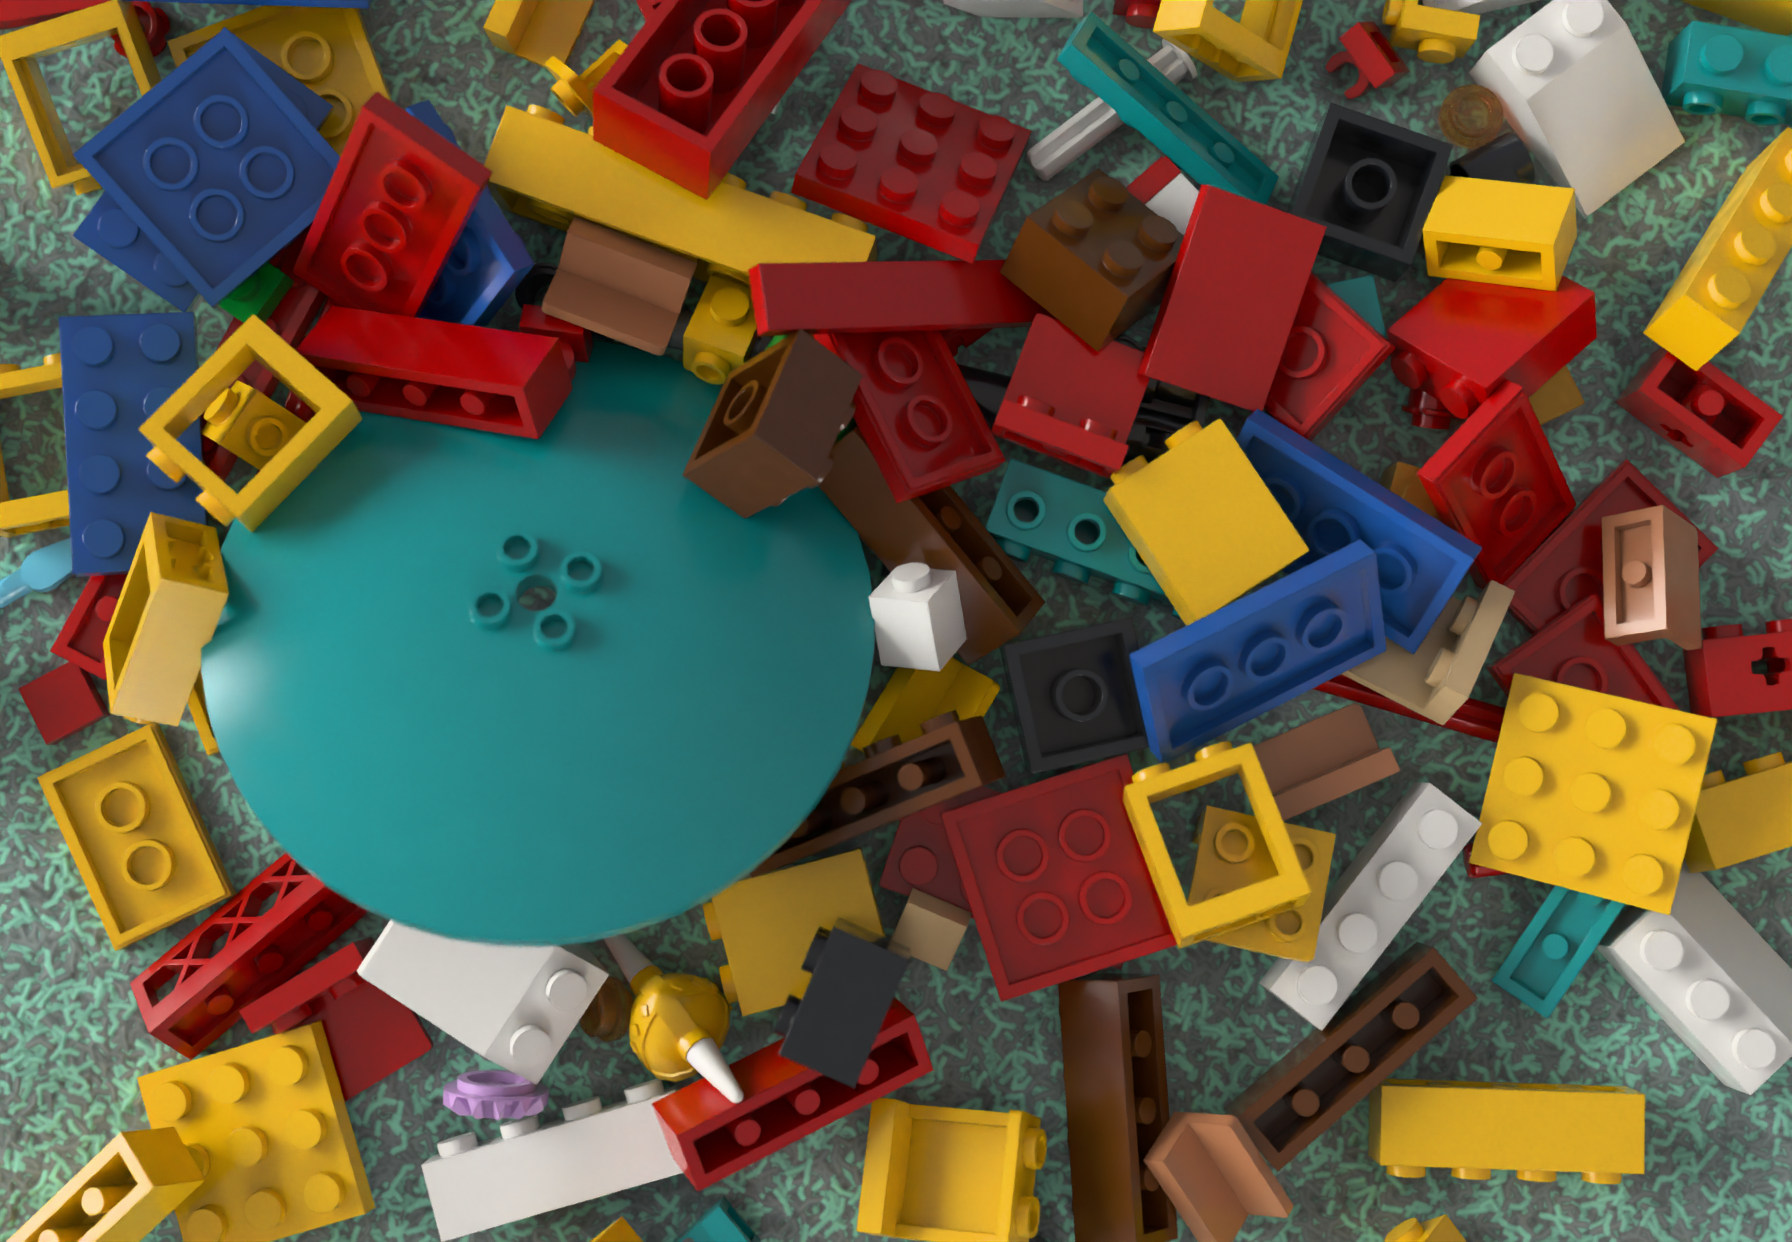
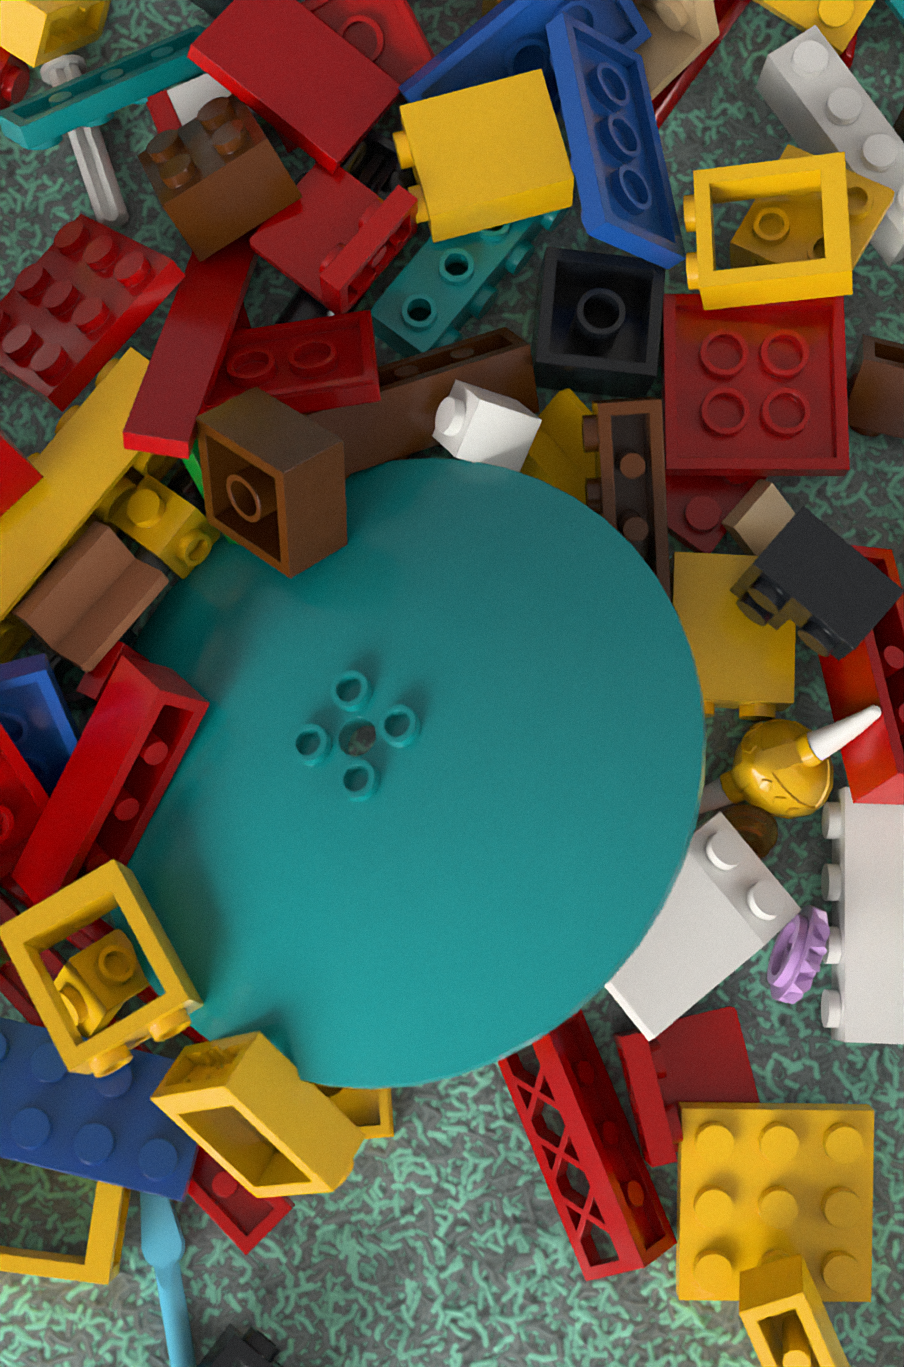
camera: 80 degrees left, 5 degrees down
(63, 702) = (297, 1263): red tile -> none
(136, 836) = (448, 1231): yellow tile -> none
(1323, 760) = (716, 138): nougat panel -> none

